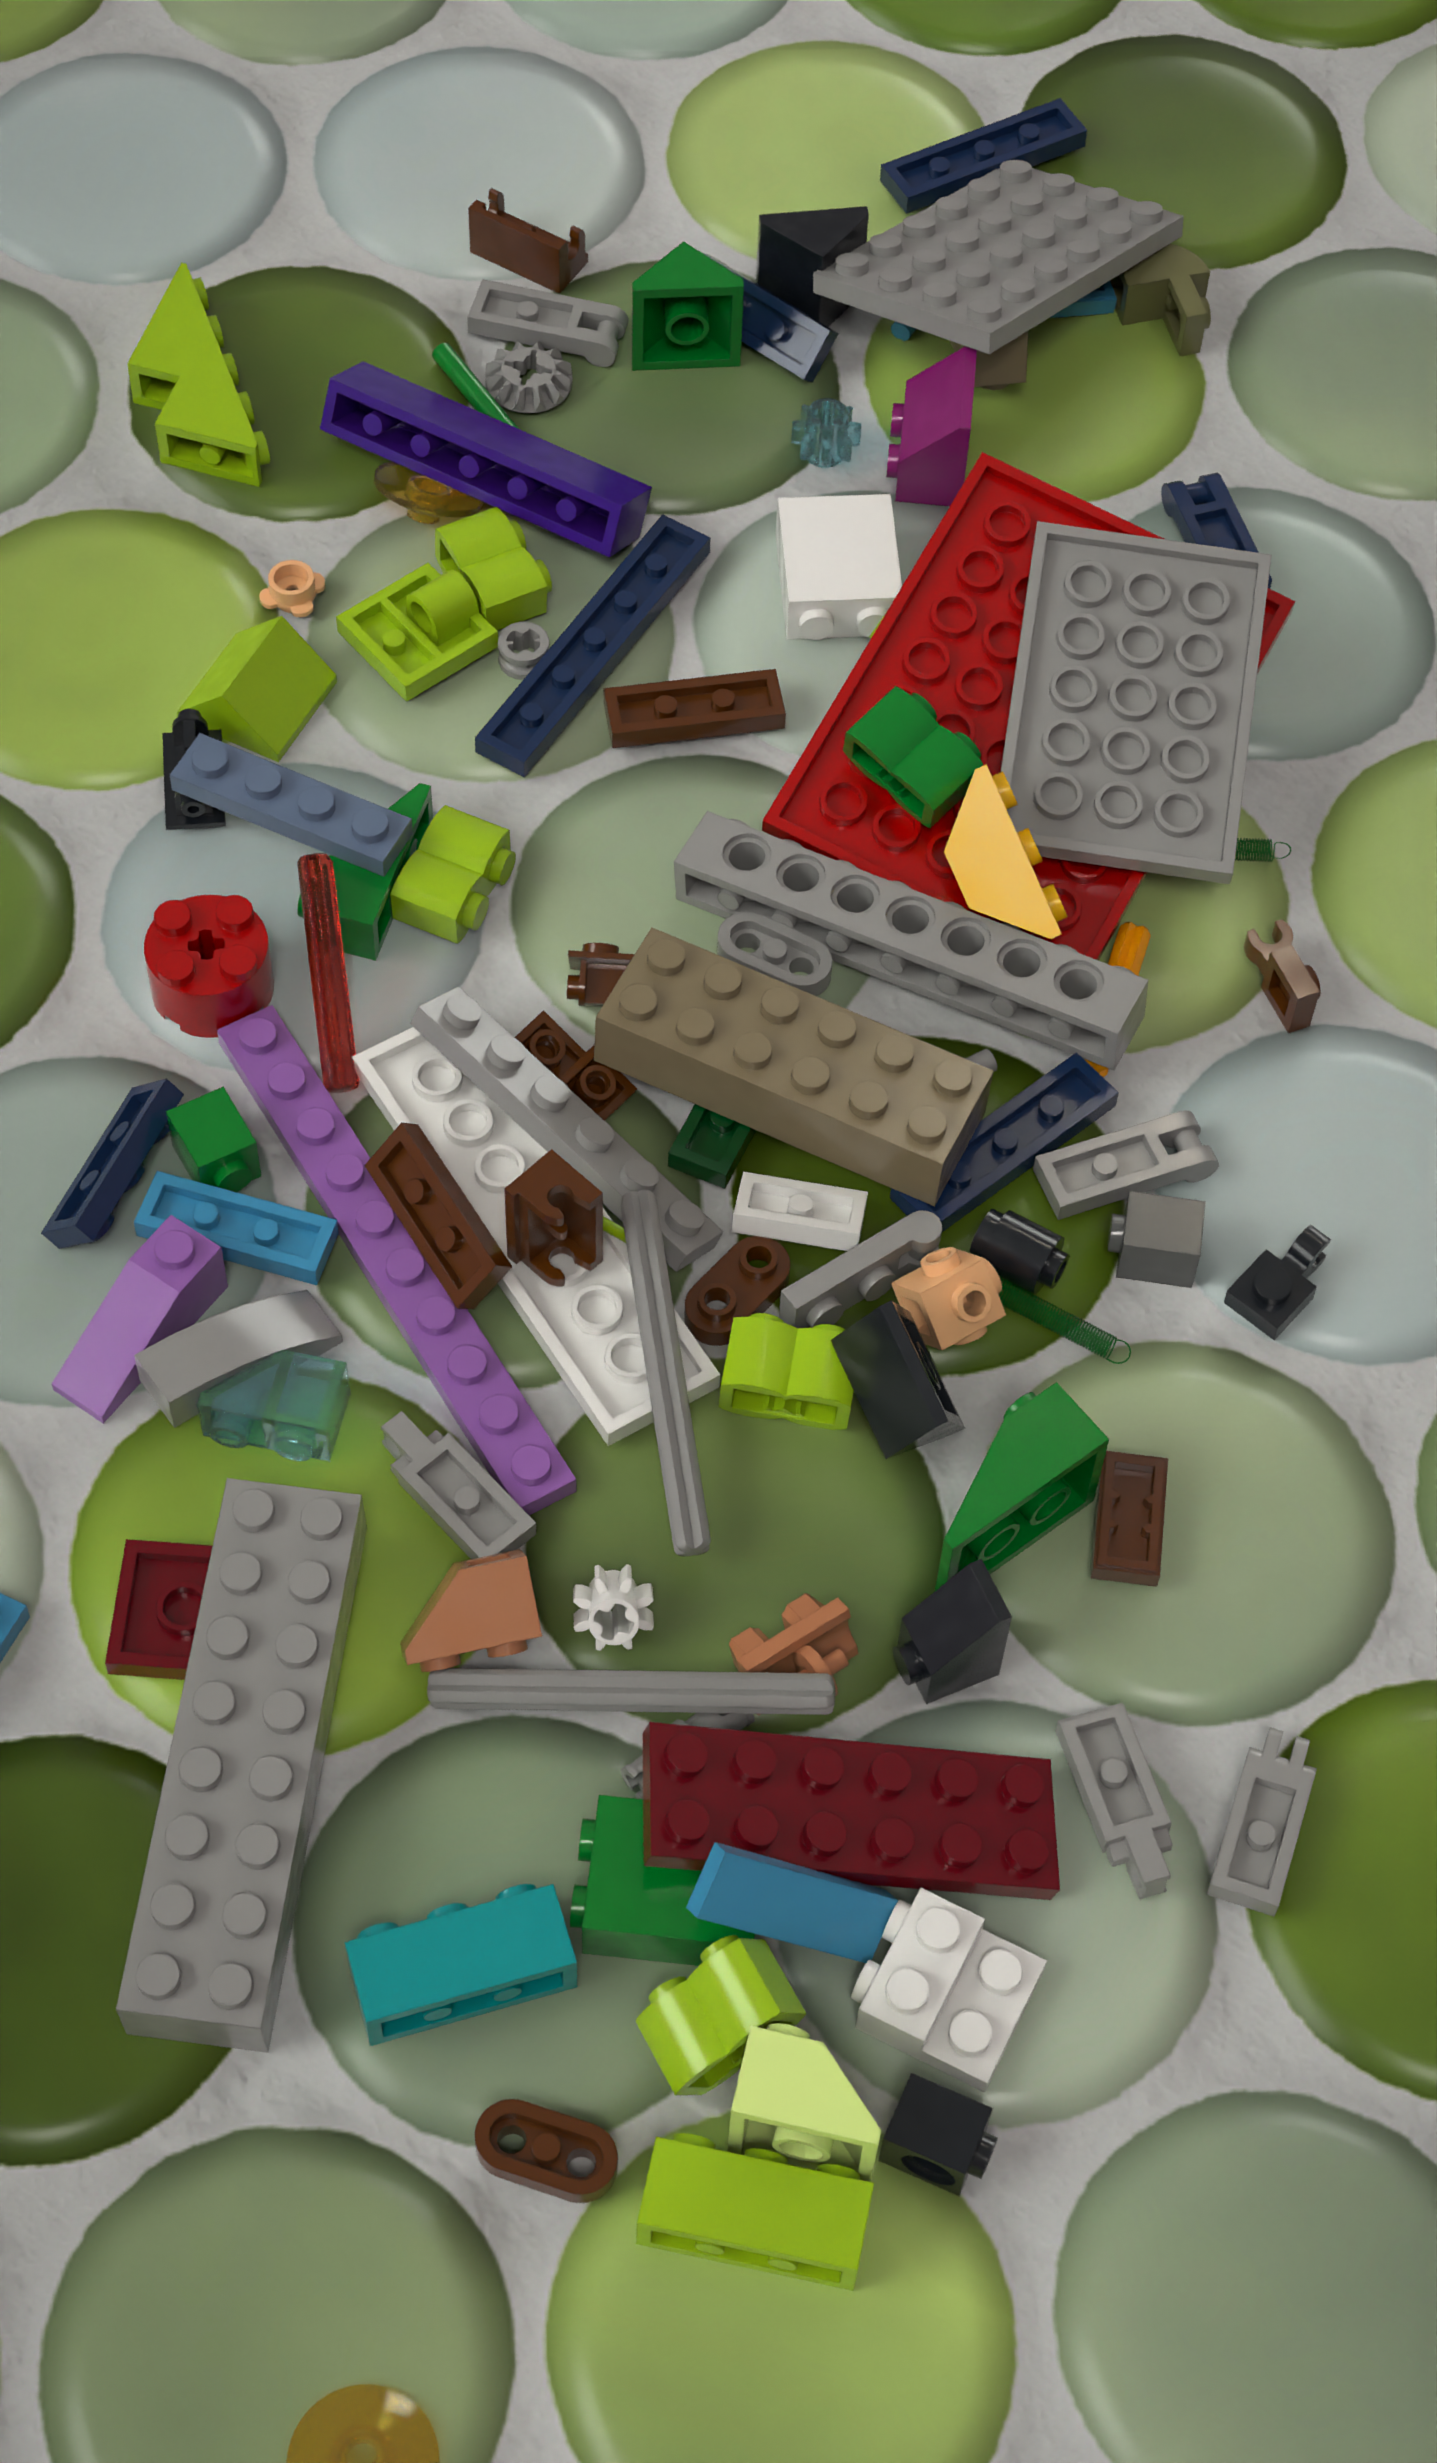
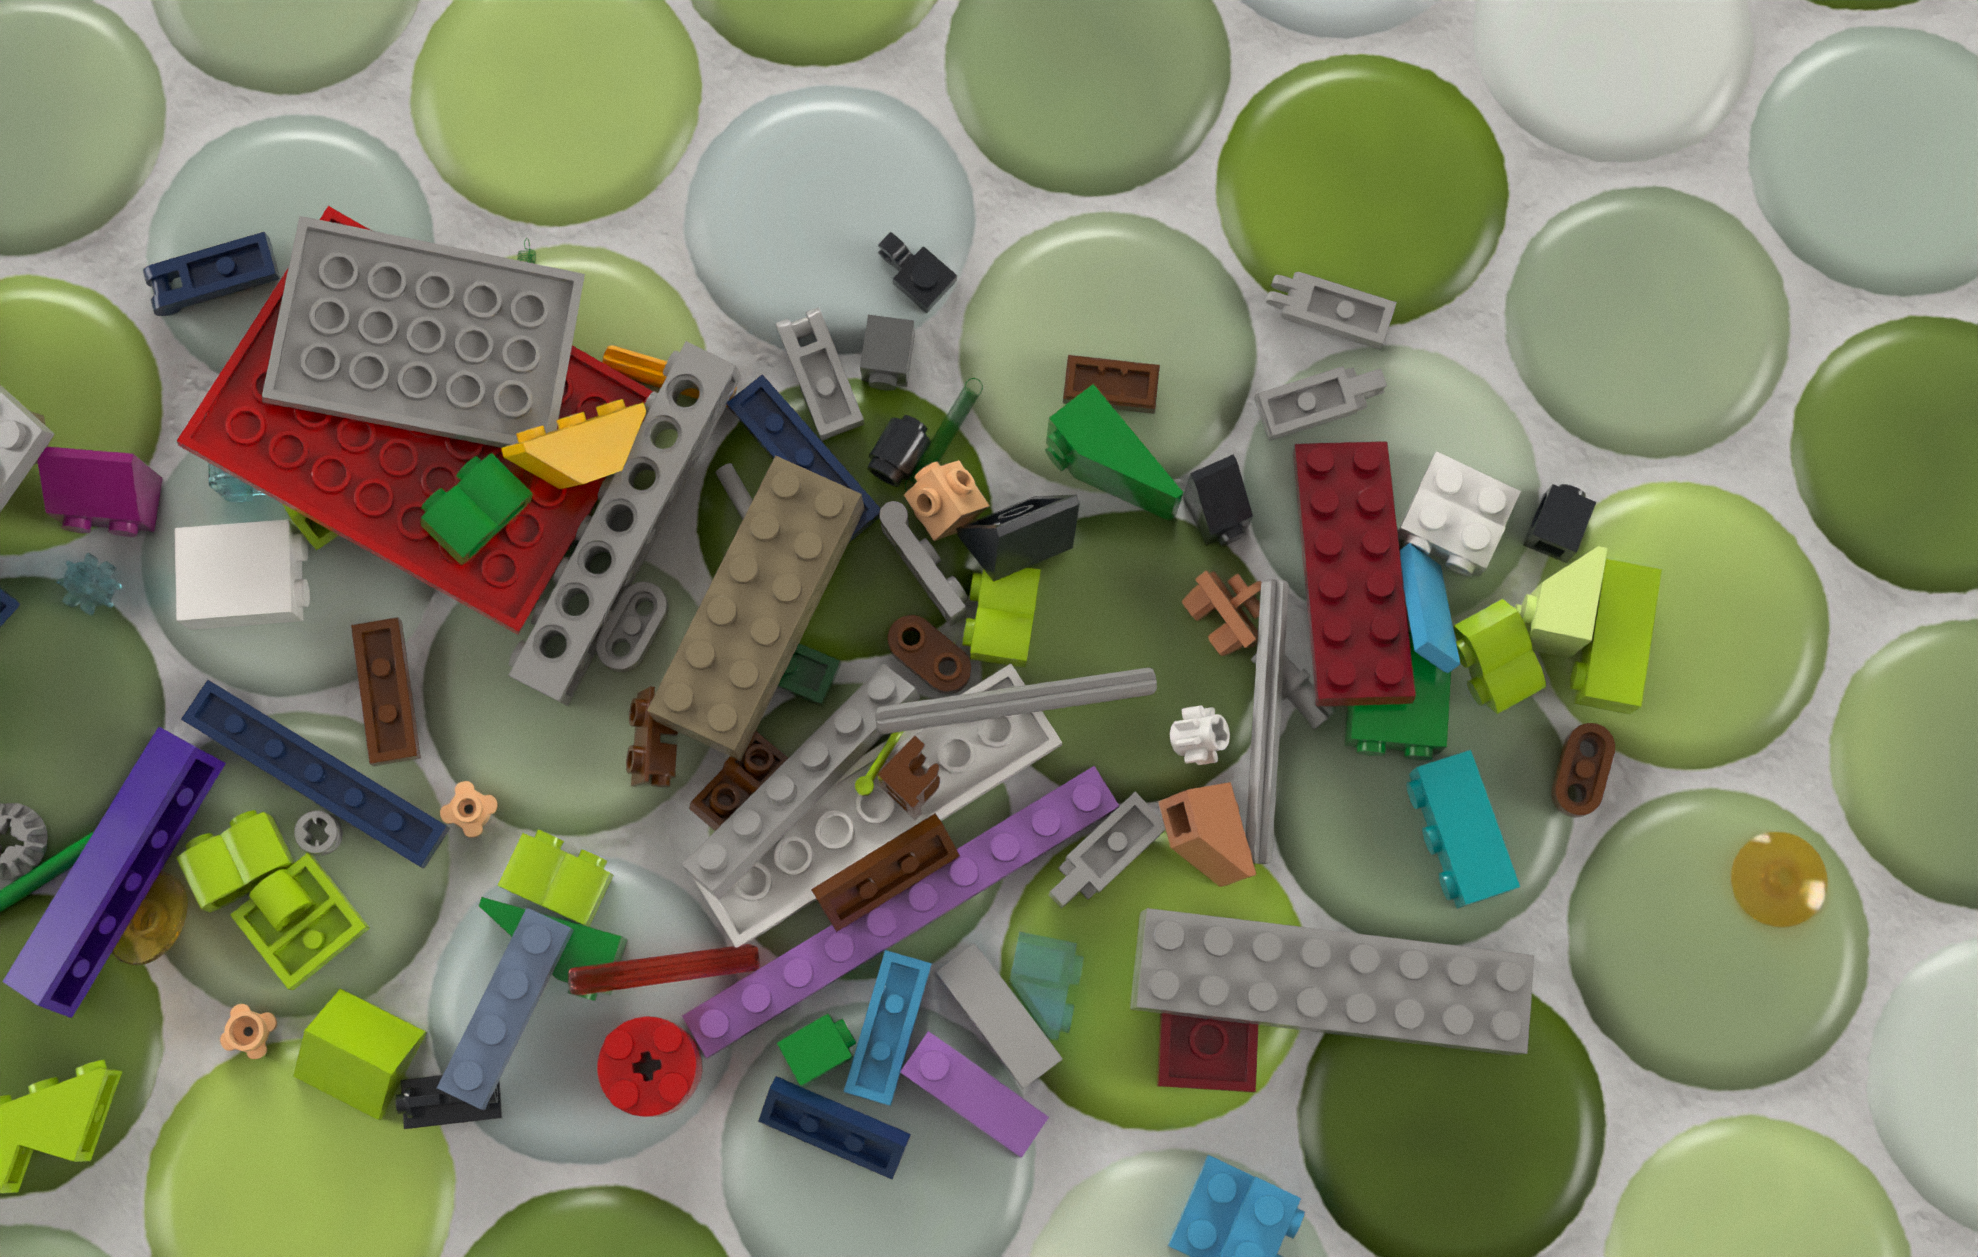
camera: 90 degrees left, 20 degrees up
(542, 805) = (482, 809): none -> light nougat plate
(799, 1211) = (867, 607): white plate -> none
(1286, 980) = (659, 246): reddish brown plate -> none

